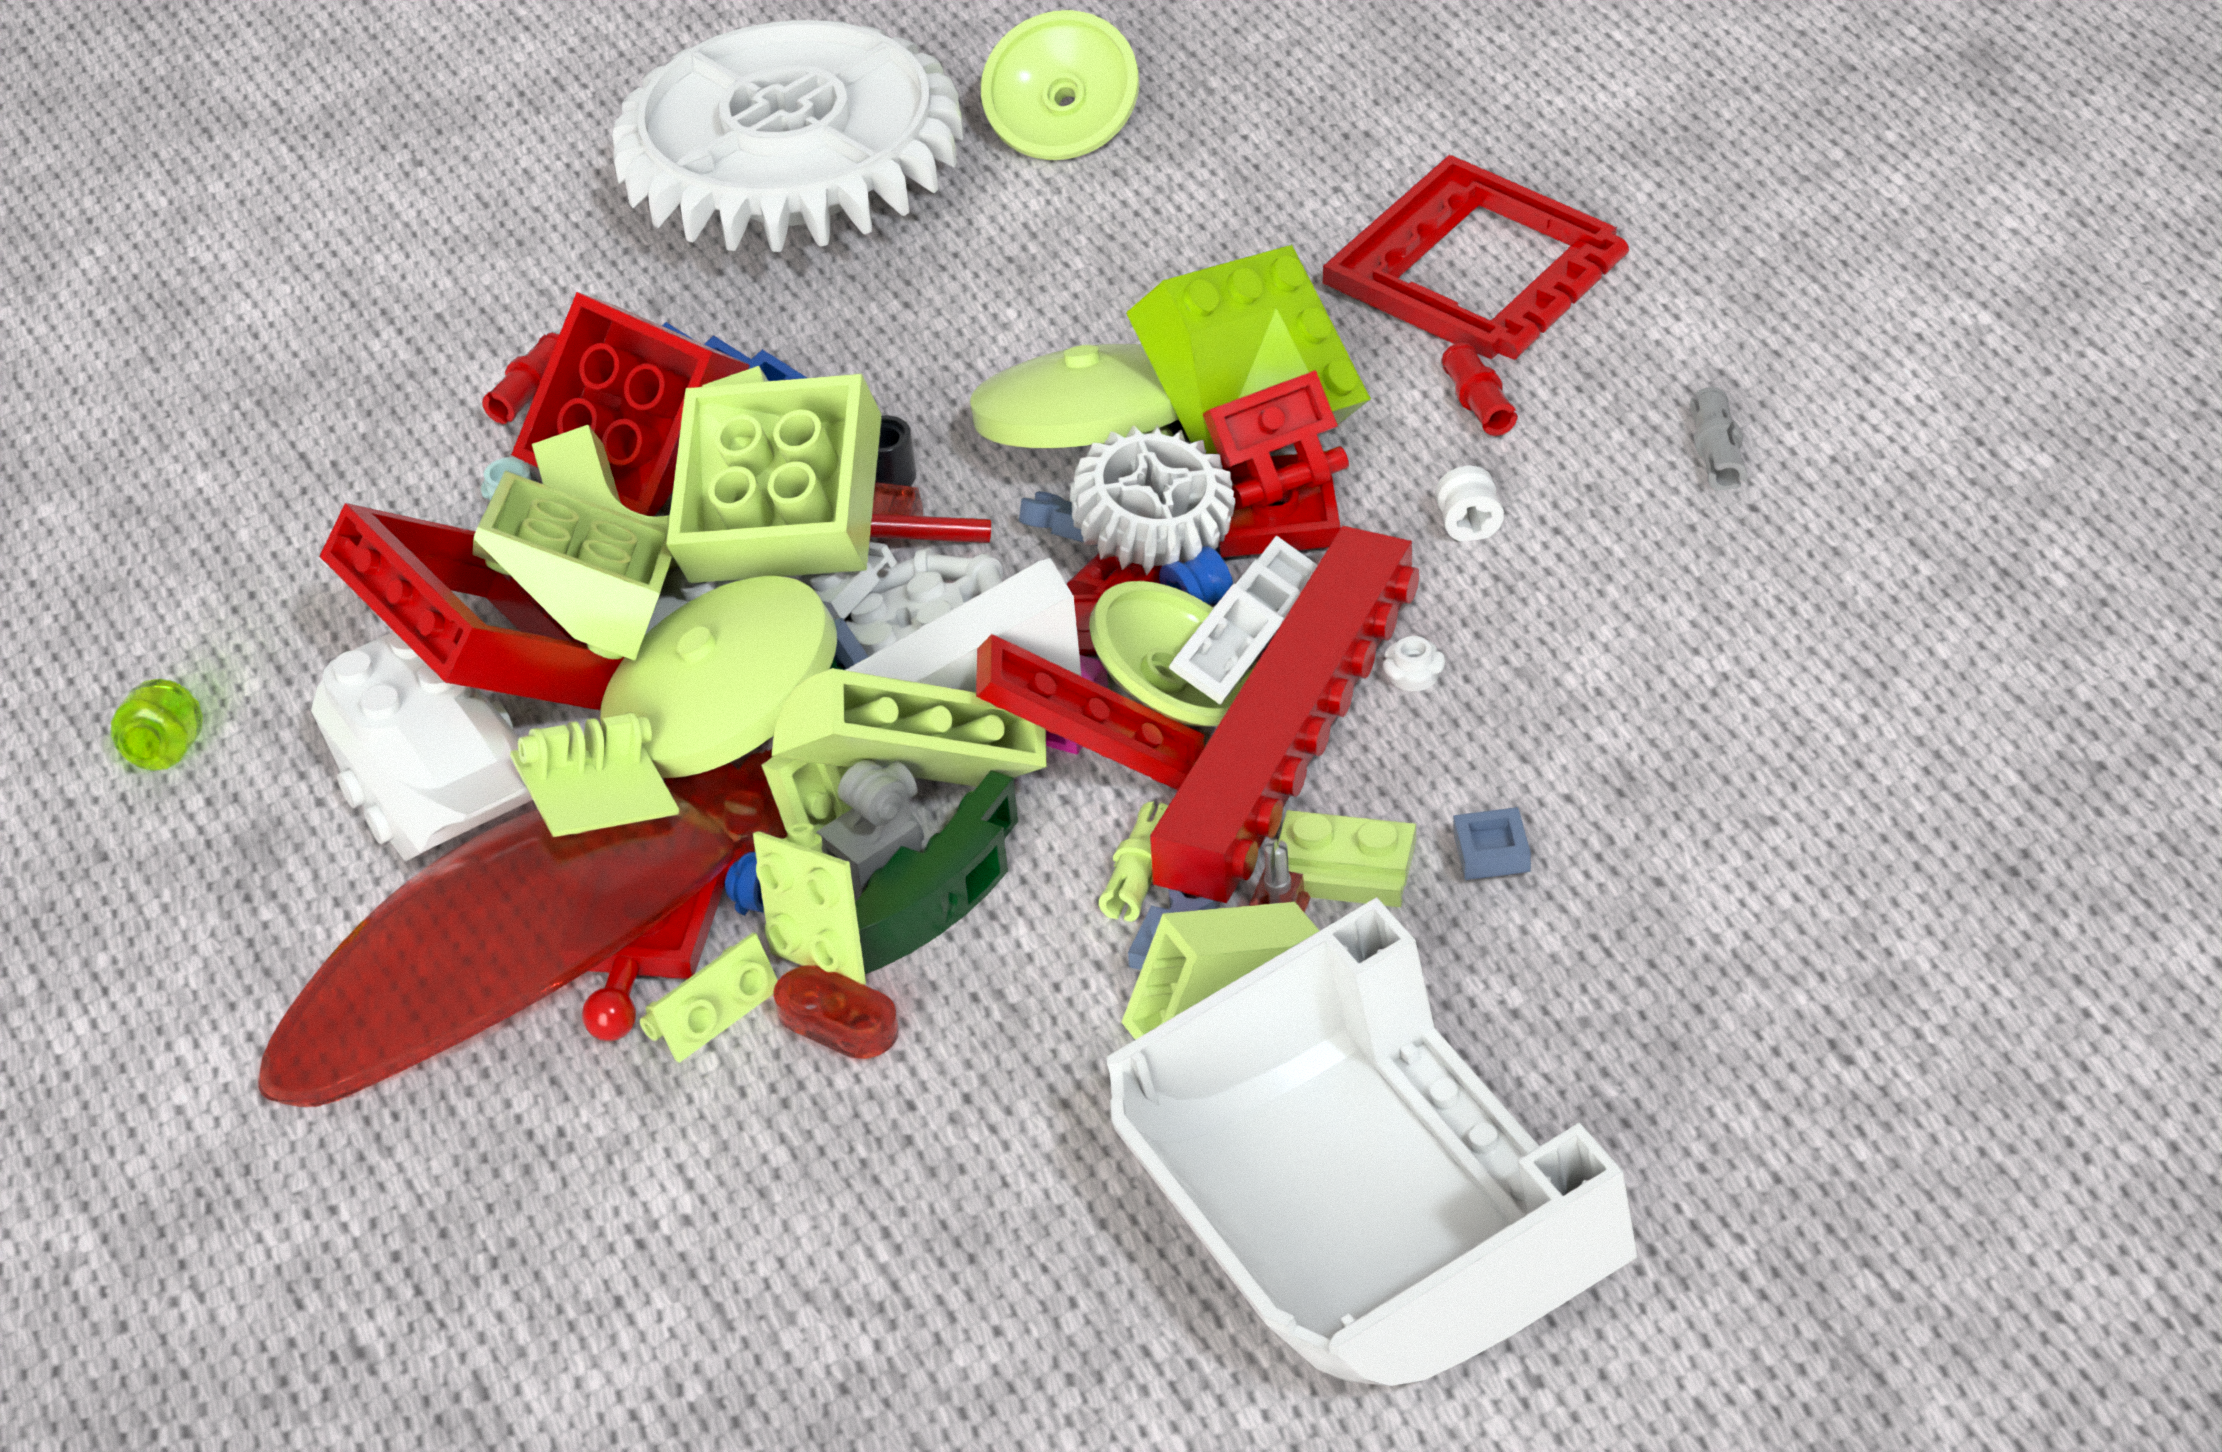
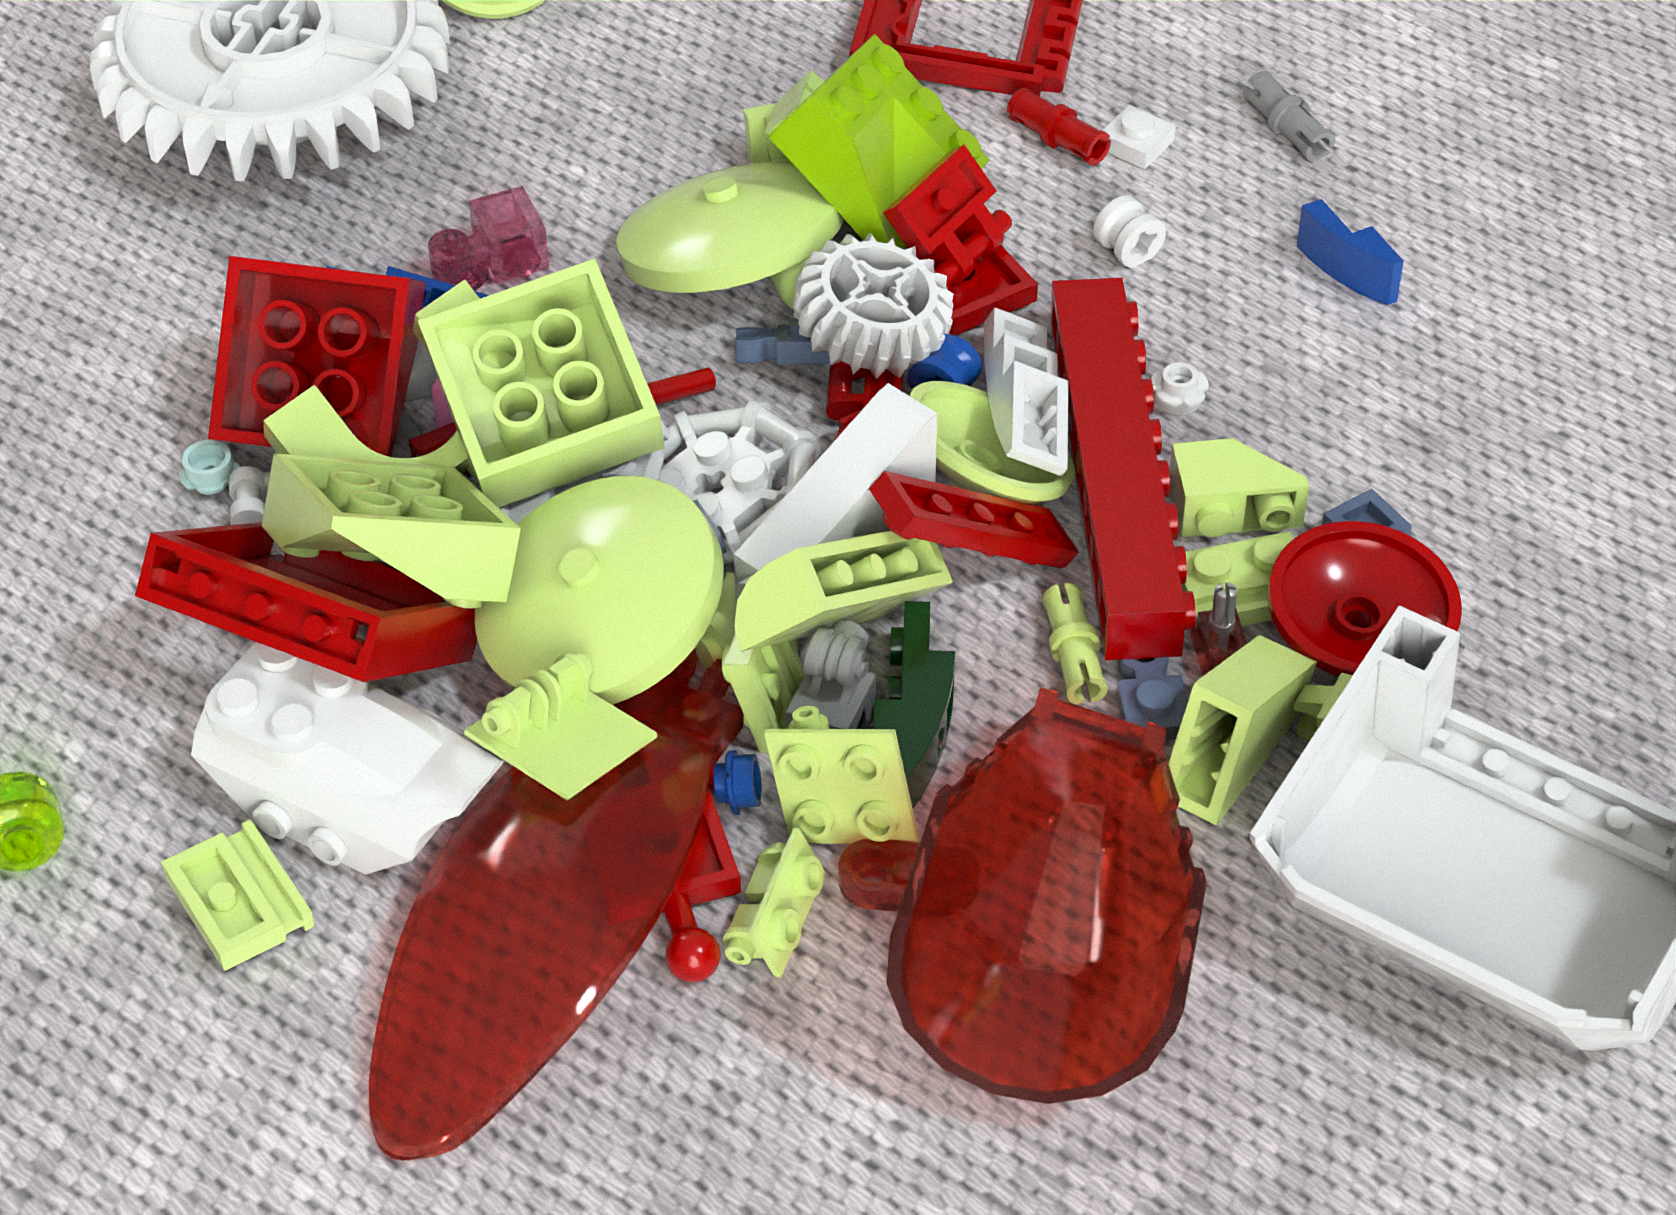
camera: 30 degrees left, 5 degrees up
(284, 840) = (237, 895): none -> yellowish green plate
(520, 382) = (152, 359): red pin -> none
(890, 356) = (504, 242): none -> clear pink brick
(891, 1053) = (1051, 910): none -> clear red windscreen
(1382, 768) = (1233, 489): none -> yellowish green slope
(1433, 882) = (1354, 577): none -> red dish
(1554, 419) = (1139, 136): none -> white plate
(1671, 585) = (1354, 259): none -> blue slope

